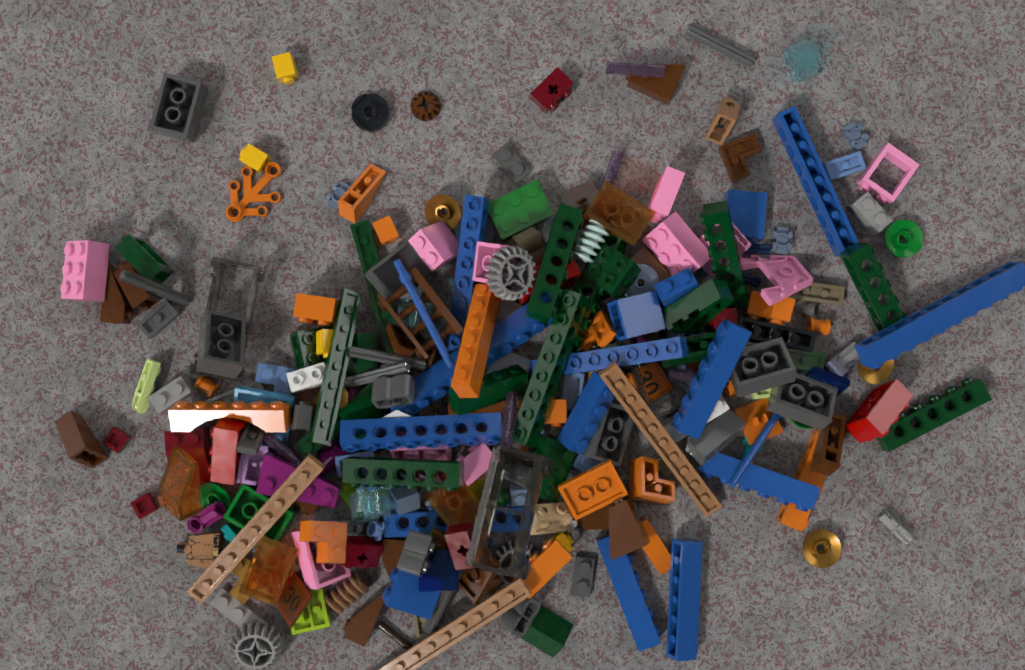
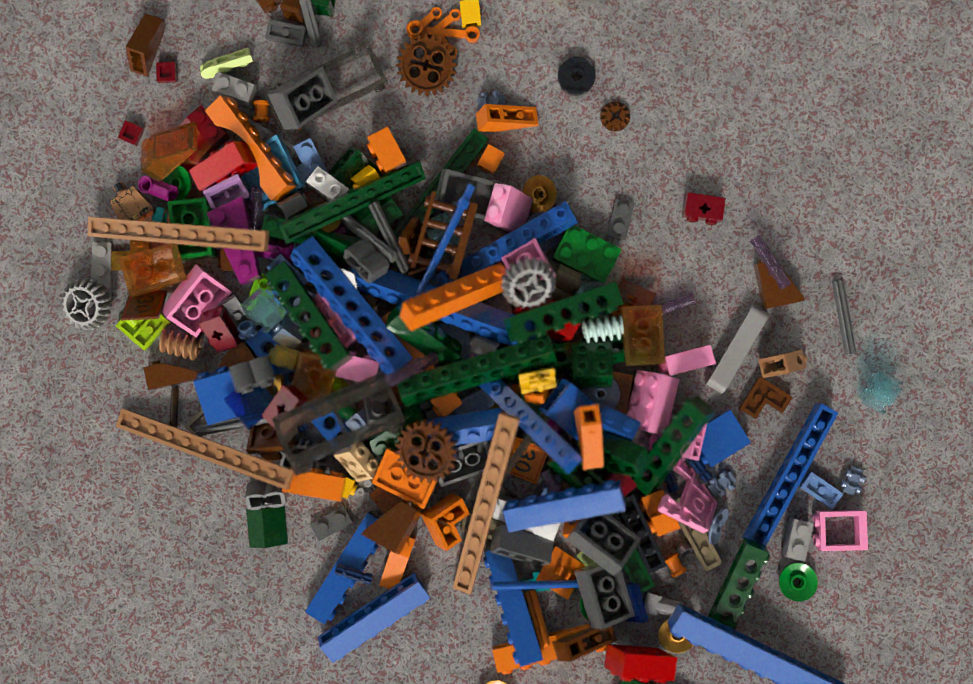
camera: 55 degrees right, 0 degrees up
(251, 439) = (245, 177): dark grey plate -> none
(259, 210) = (431, 47): none -> reddish brown gear
(330, 539) = (213, 298): orange brick -> none
(421, 516) = (284, 357): none -> clear yellow brick
(533, 346) = (482, 345): none -> dark grey brick
(593, 325) = (537, 380): none -> yellow hips
(598, 445) = (443, 455): none -> reddish brown gear
(638, 589) = (354, 574): none -> dark blue axle
(670, 316) = (589, 436): none -> orange slope
(684, 147) = (737, 349): none -> light grey beam
(782, 467) = (537, 618): none -> orange axle
(812, 269) = (716, 526): none -> sand blue dish

